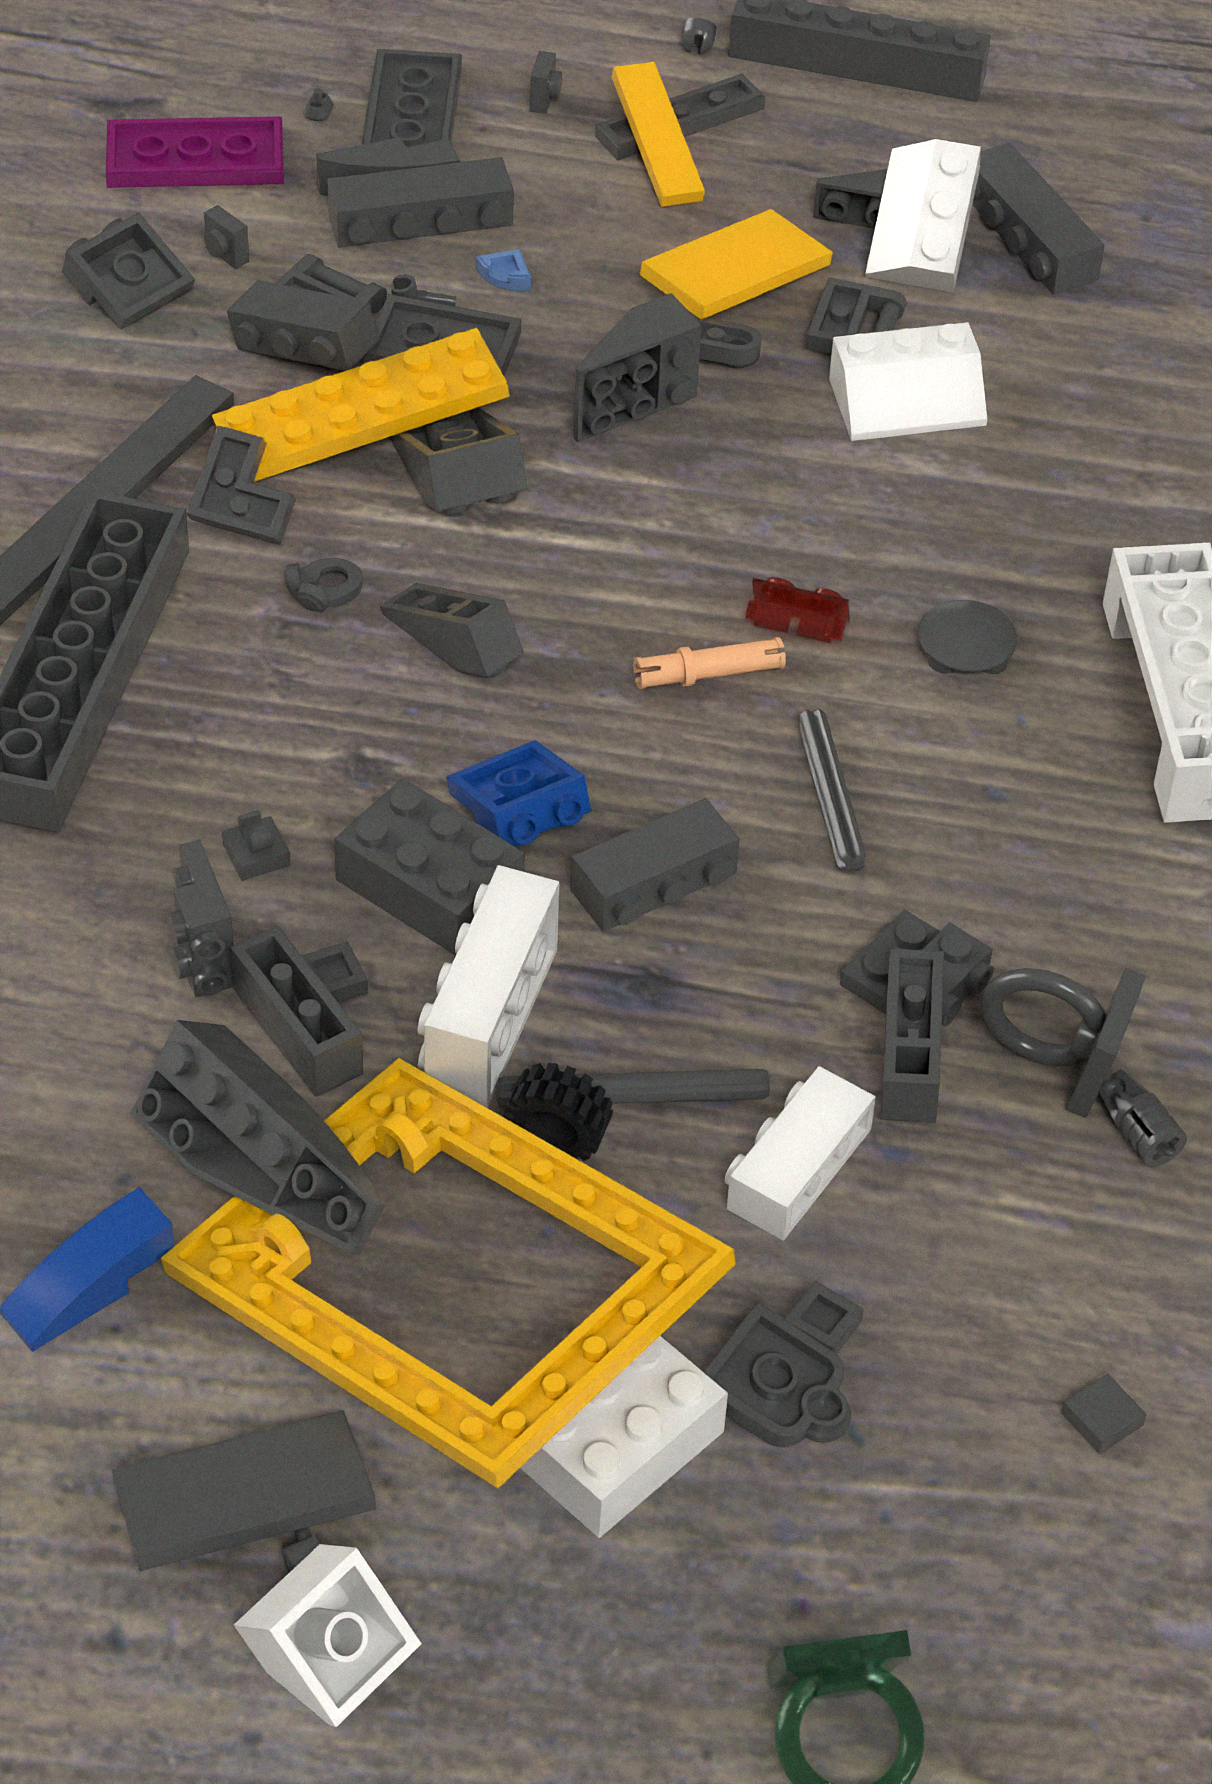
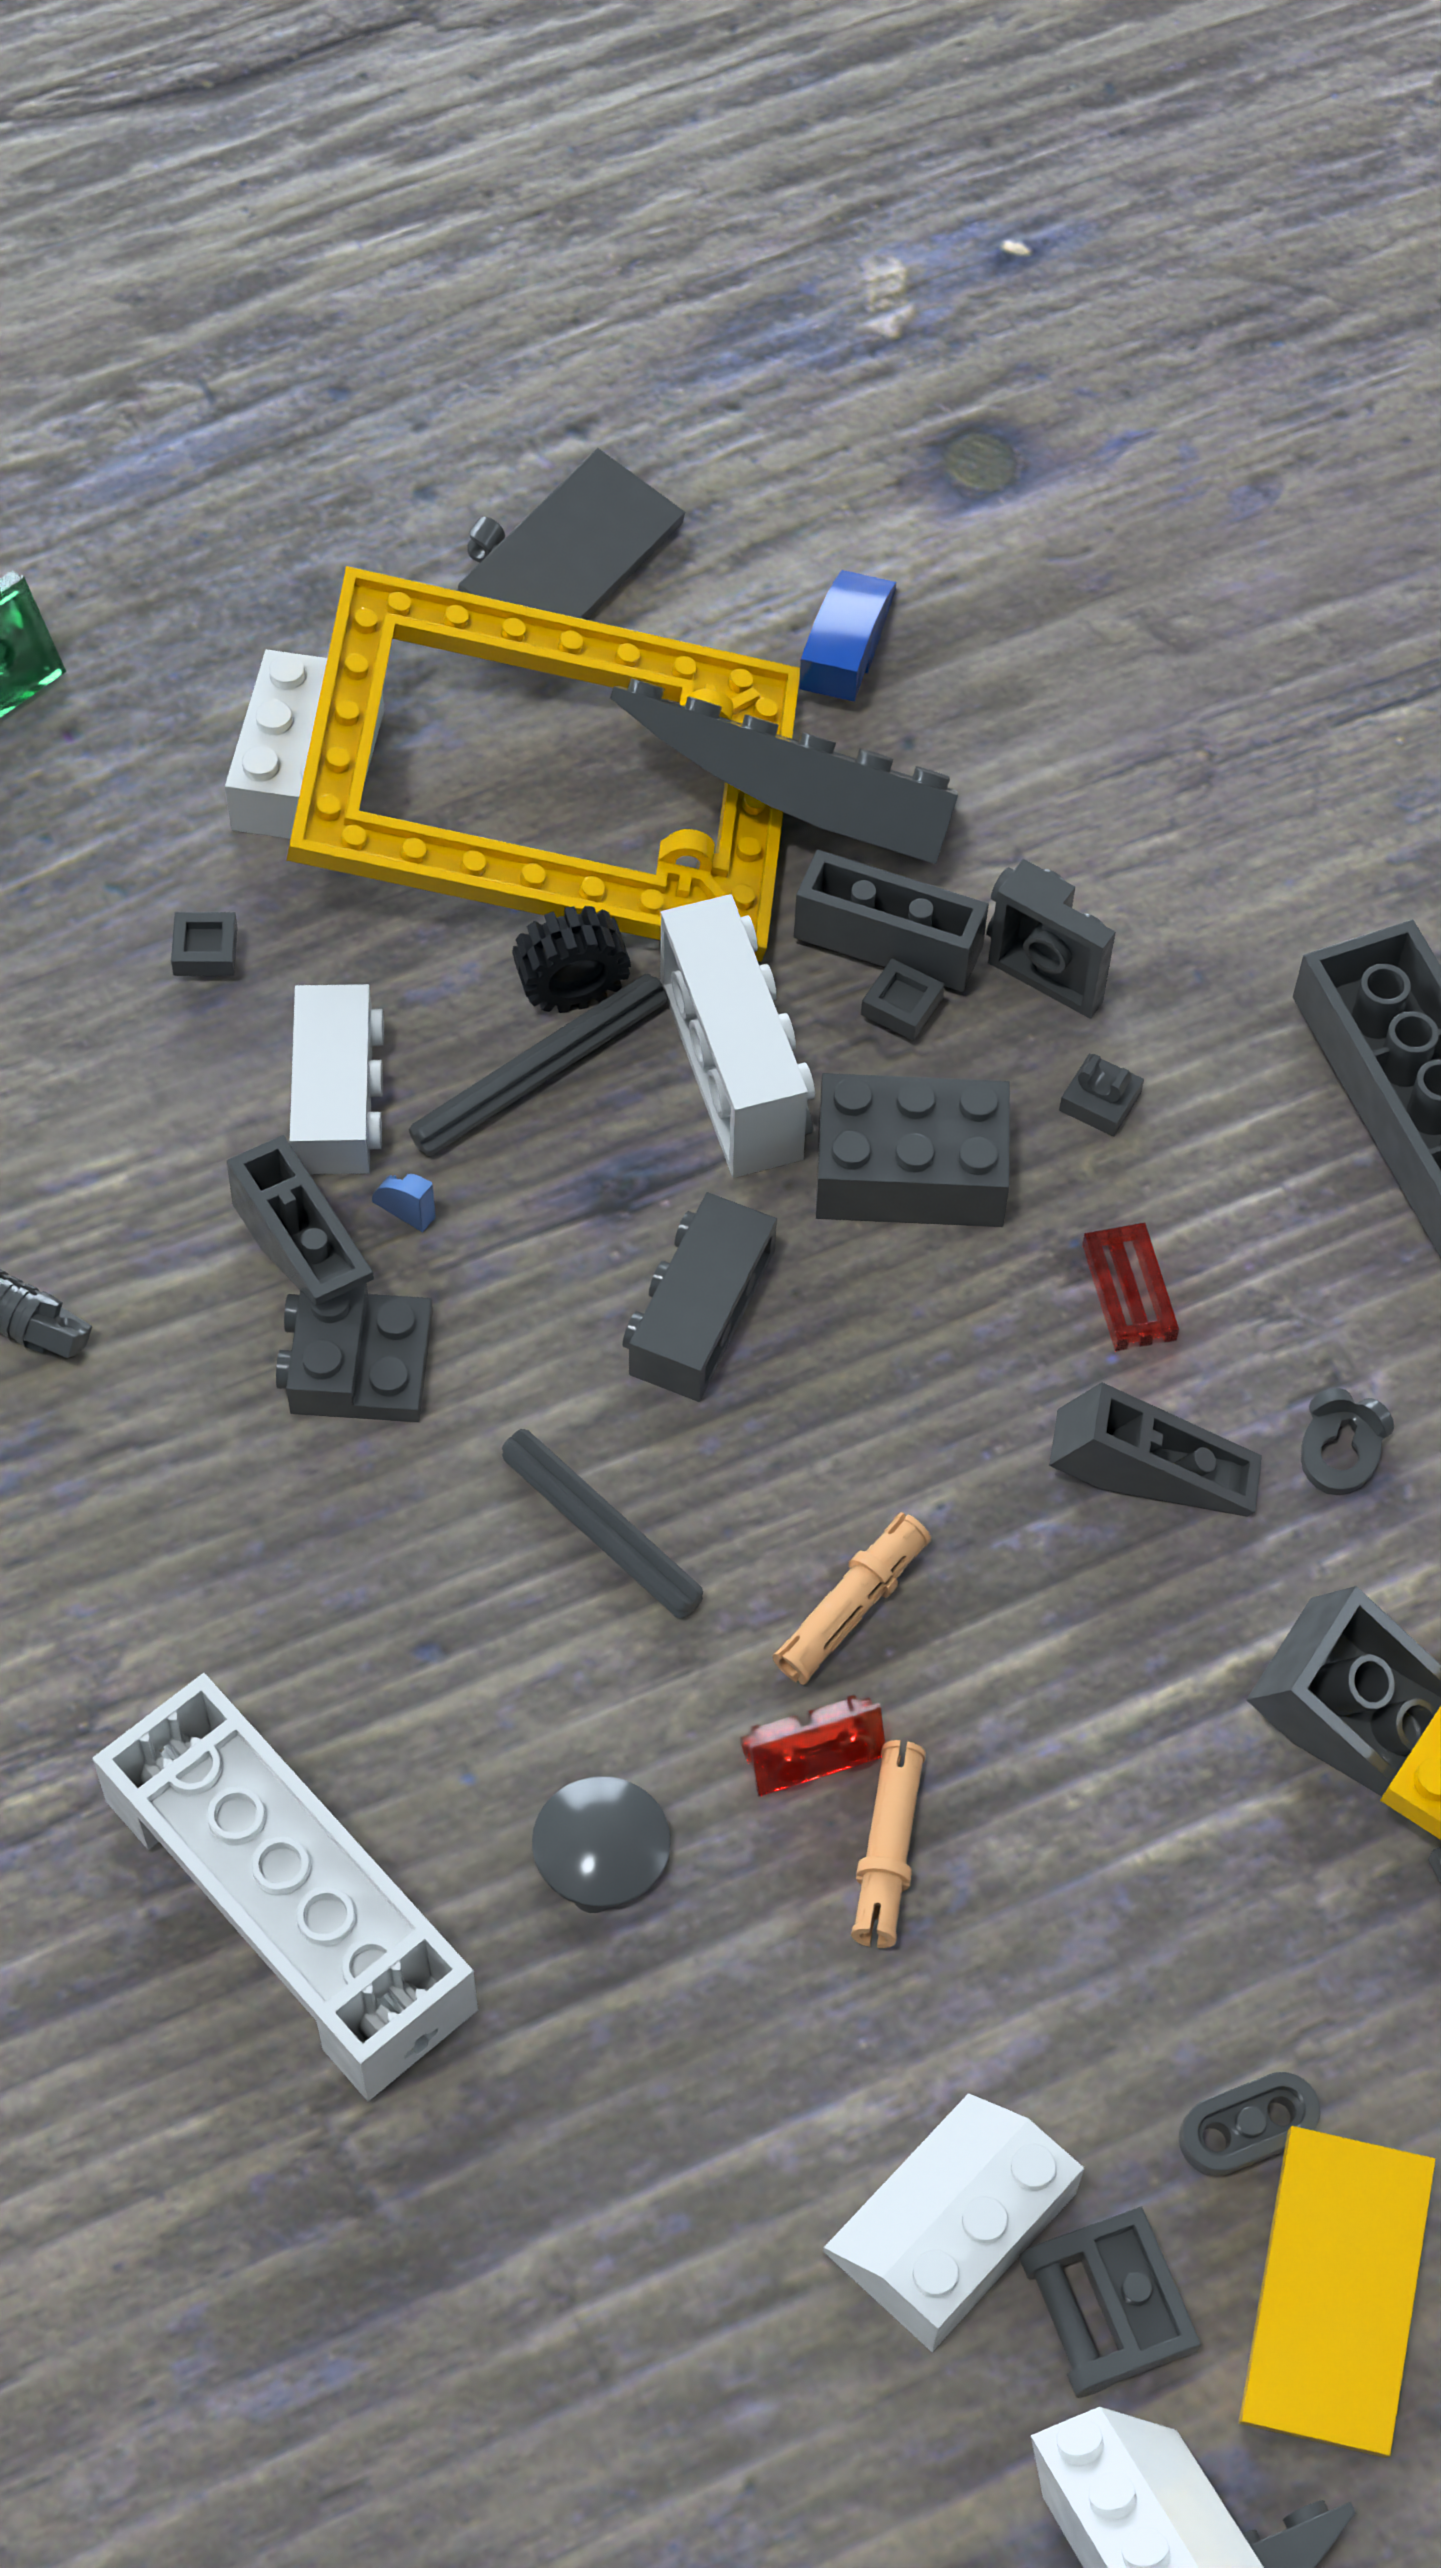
camera: 145 degrees right, 10 degrees up
(329, 1632) = (418, 489): white slope -> none
(361, 764) = (1141, 1330): none -> clear red tile
(522, 793) = (901, 1289): blue plate -> none
(638, 368) = (1274, 1956): dark grey slope -> none
(781, 1381) = (208, 868): dark grey plate -> none
(807, 1041) = (407, 1199): none -> medium blue tile
(811, 535) = (884, 1869): none -> light nougat pin
(1095, 1040) = (109, 1330): dark grey tile -> none

